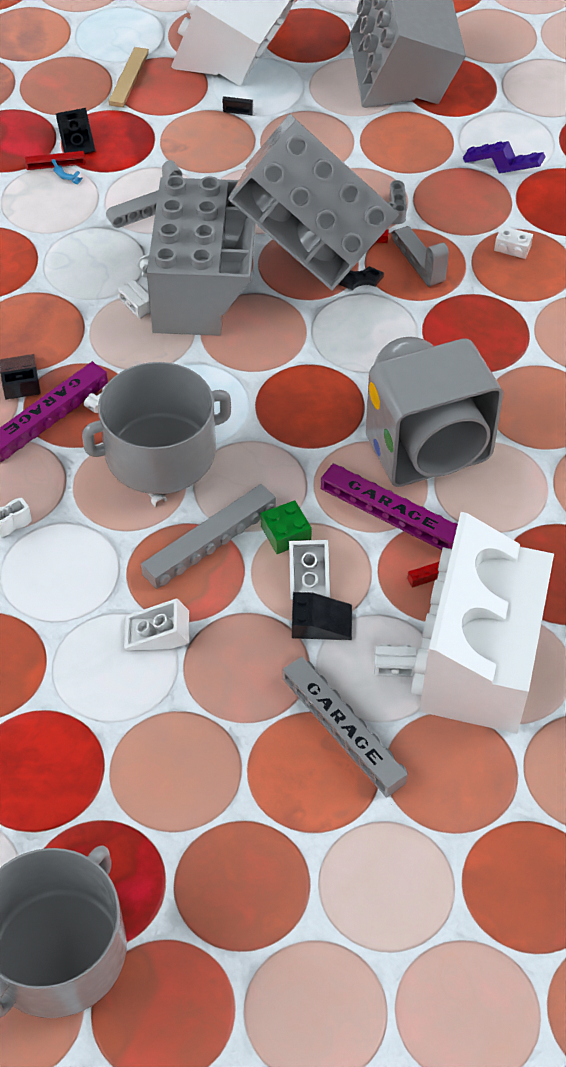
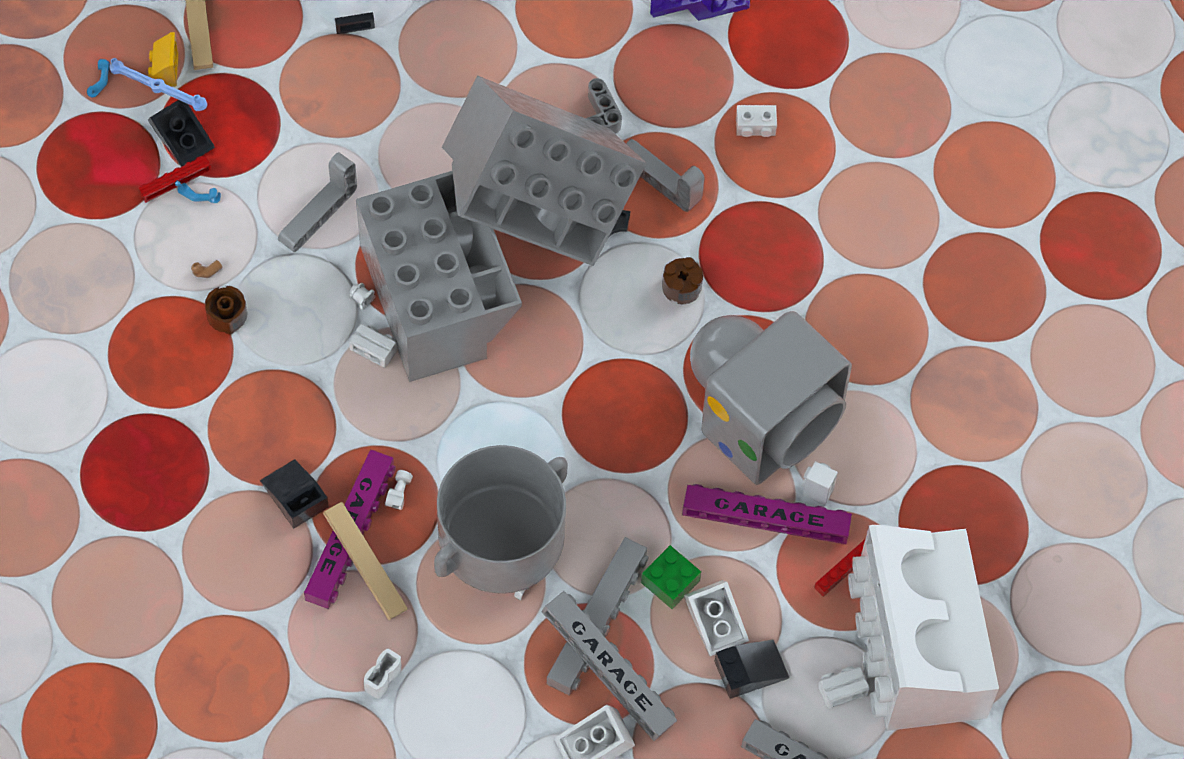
camera: 25 degrees left, 10 degrees up
(37, 218) = (206, 272): none -> medium nougat arm
(40, 243) = (226, 309): none -> reddish brown brick
(43, 434) = (365, 561): none -> tan tile
(46, 84) = (94, 90): none -> dark azure piece
(89, 108) = (198, 103): none -> light blue piece
(90, 91) = (164, 59): none -> yellow slope
(196, 572) = (609, 665): none -> light grey brick
(401, 323) = (682, 280): none -> reddish brown brick
(446, 496) = (819, 482): none -> white brick

